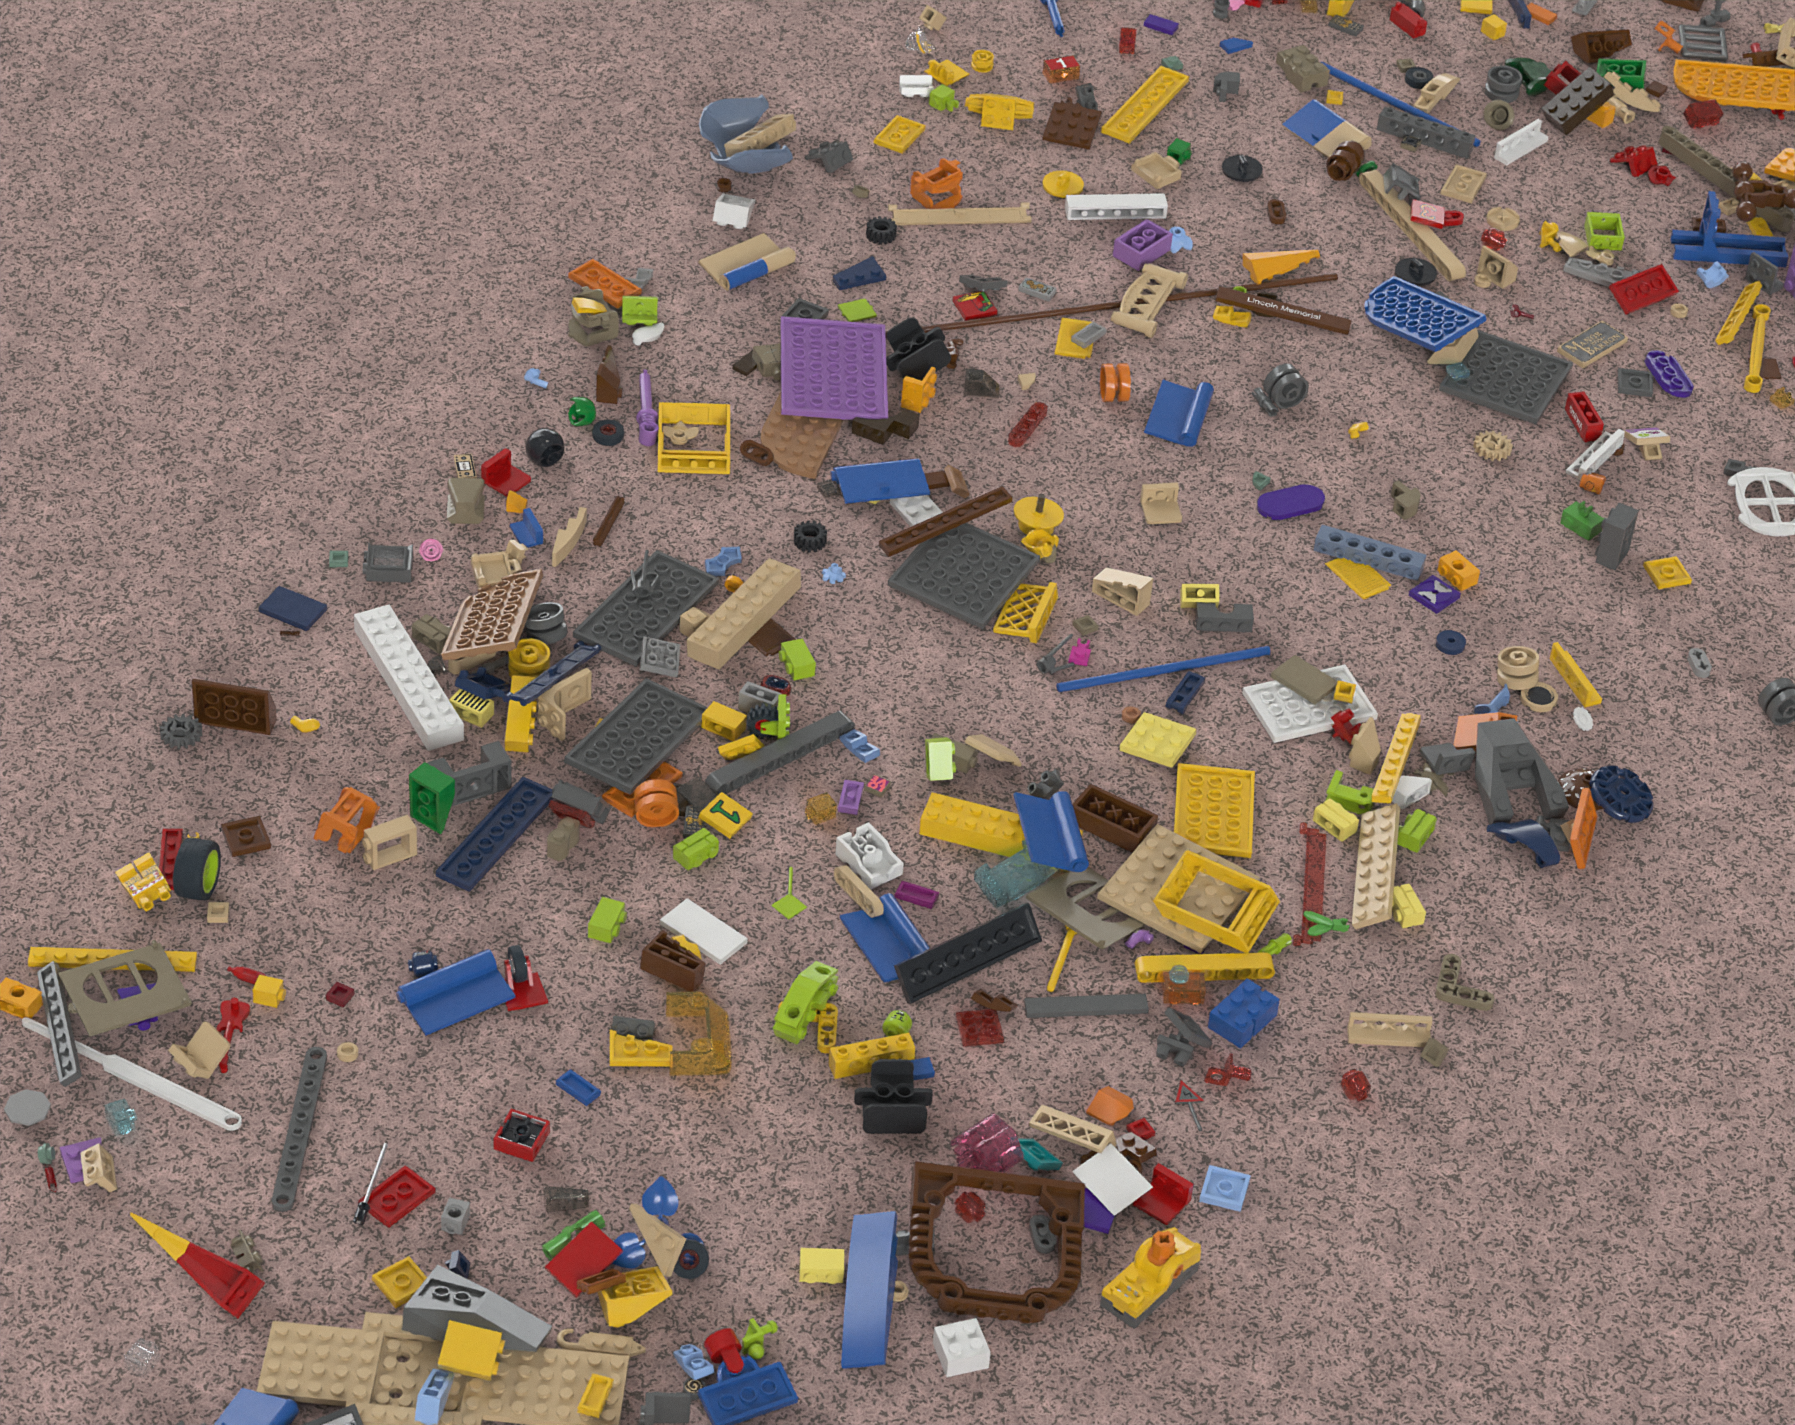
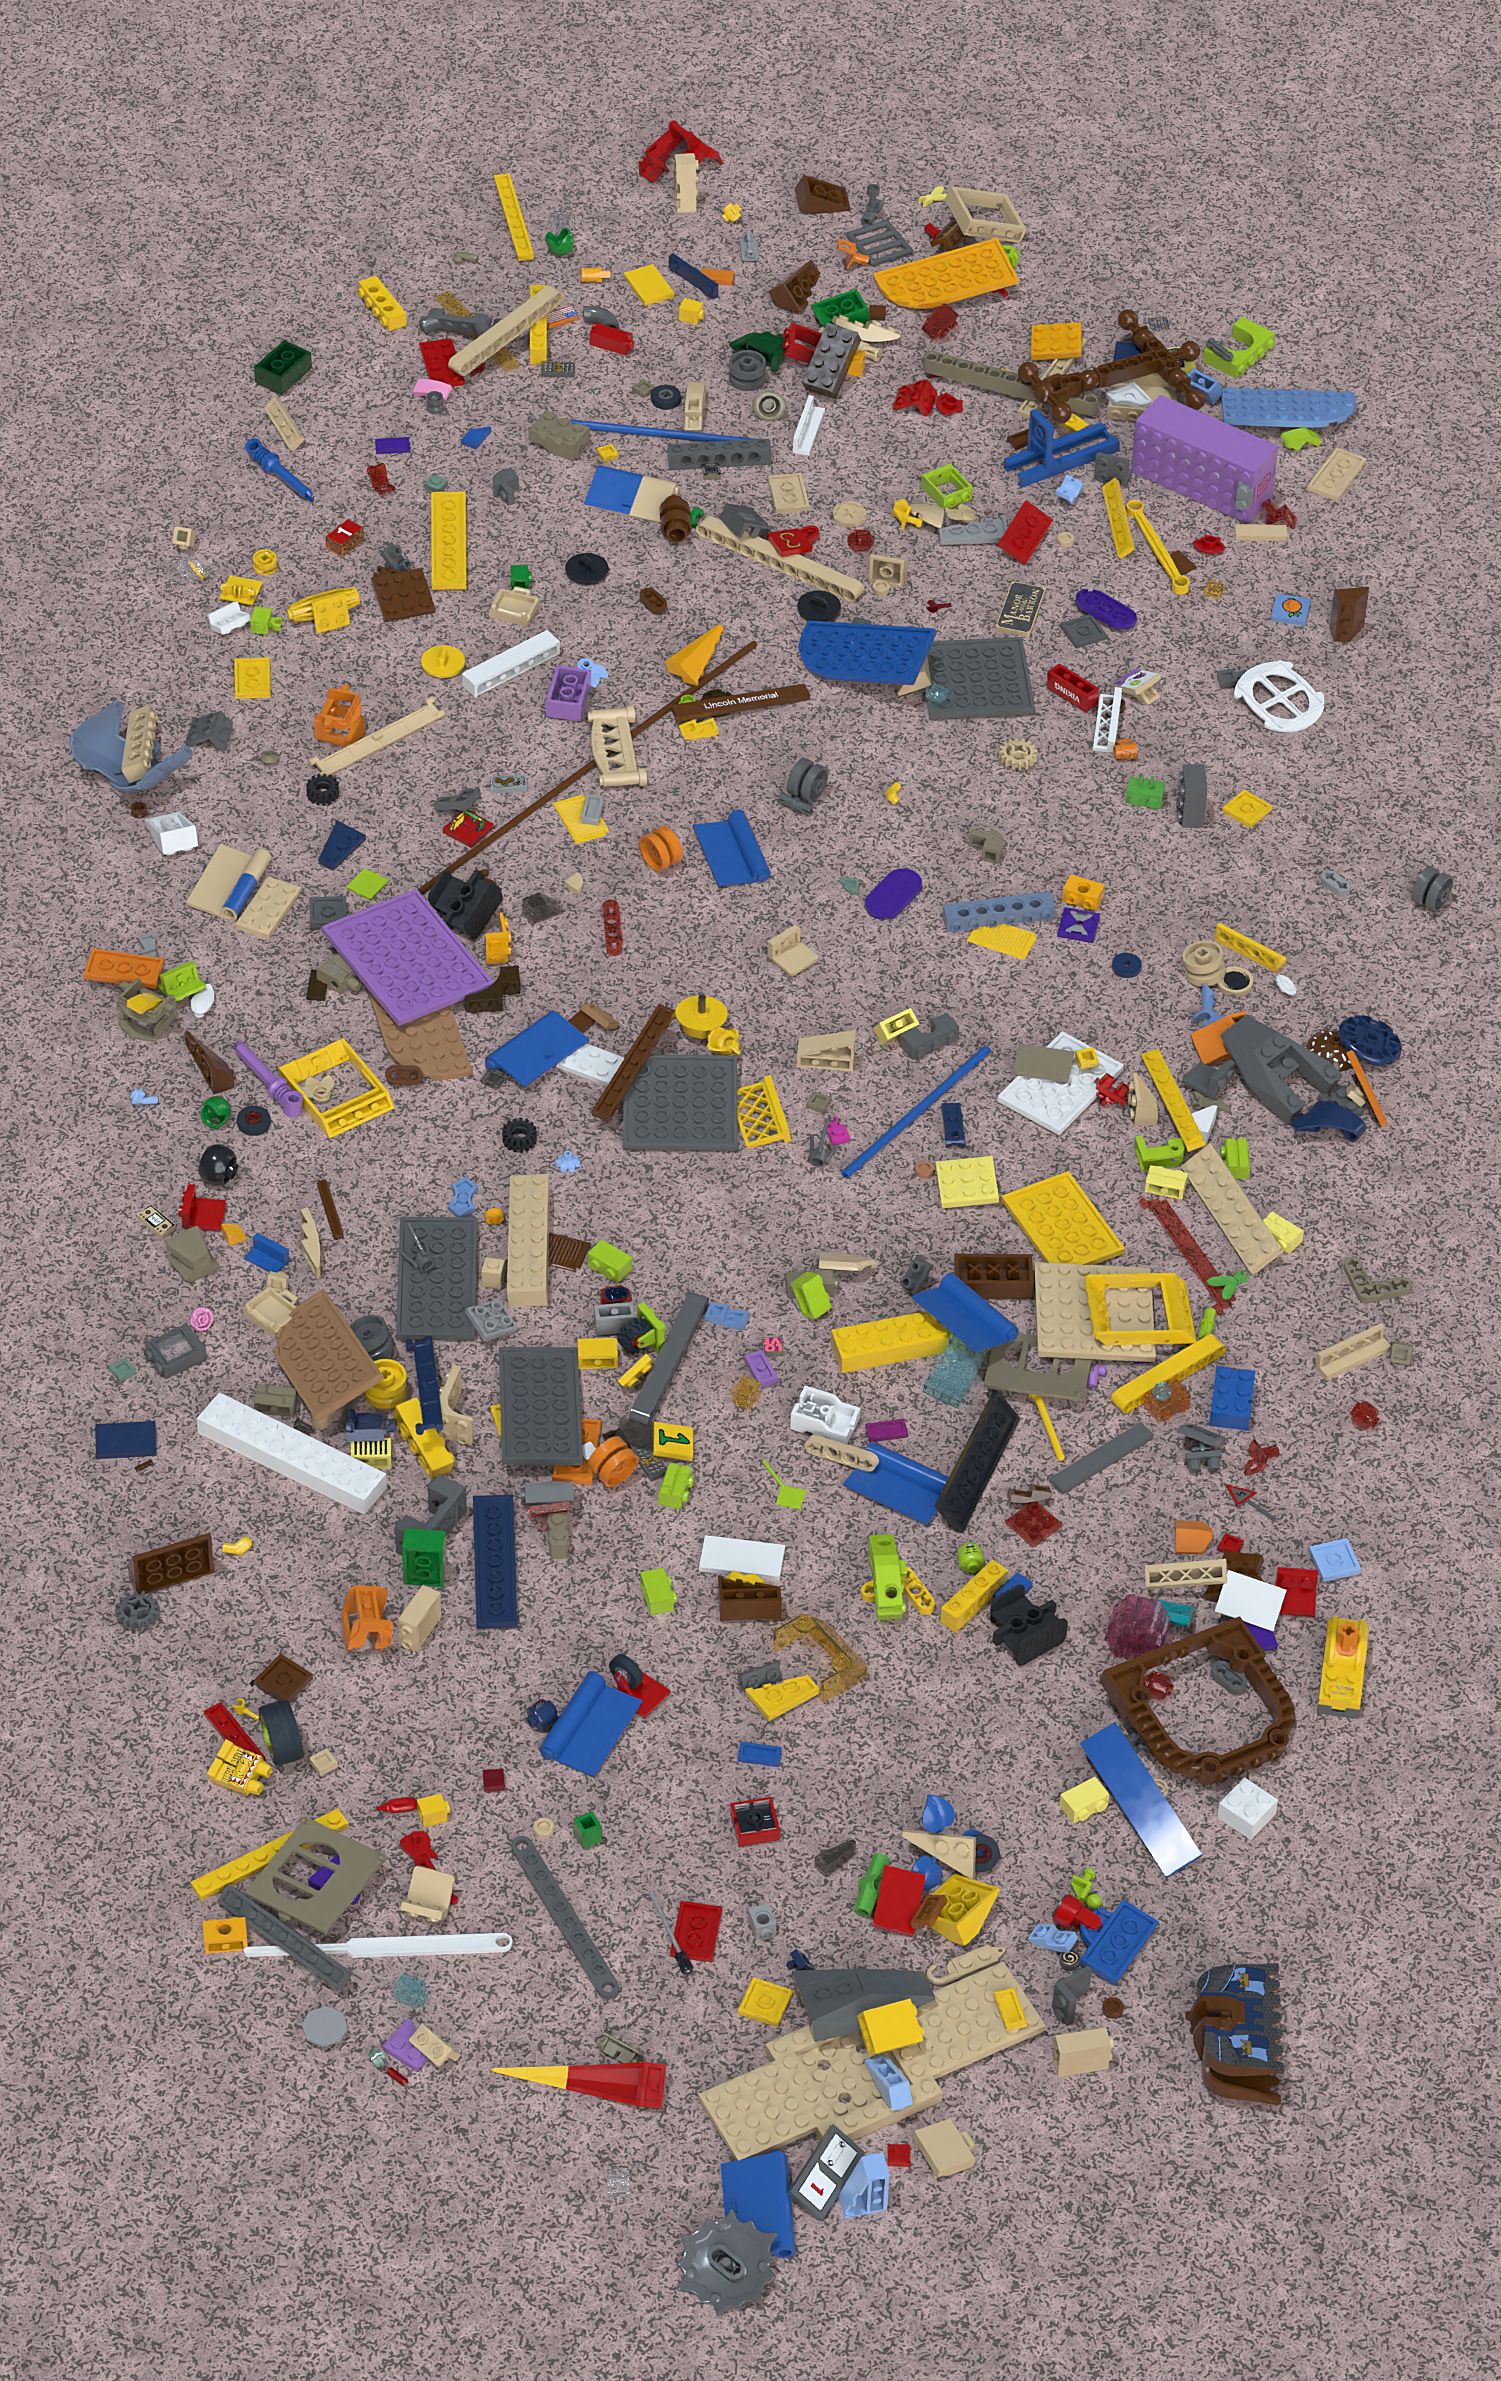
camera: 30 degrees left, 5 degrees up
(376, 1069) = (587, 1830): none -> green brick
(761, 293) = (268, 907): none -> tan plate

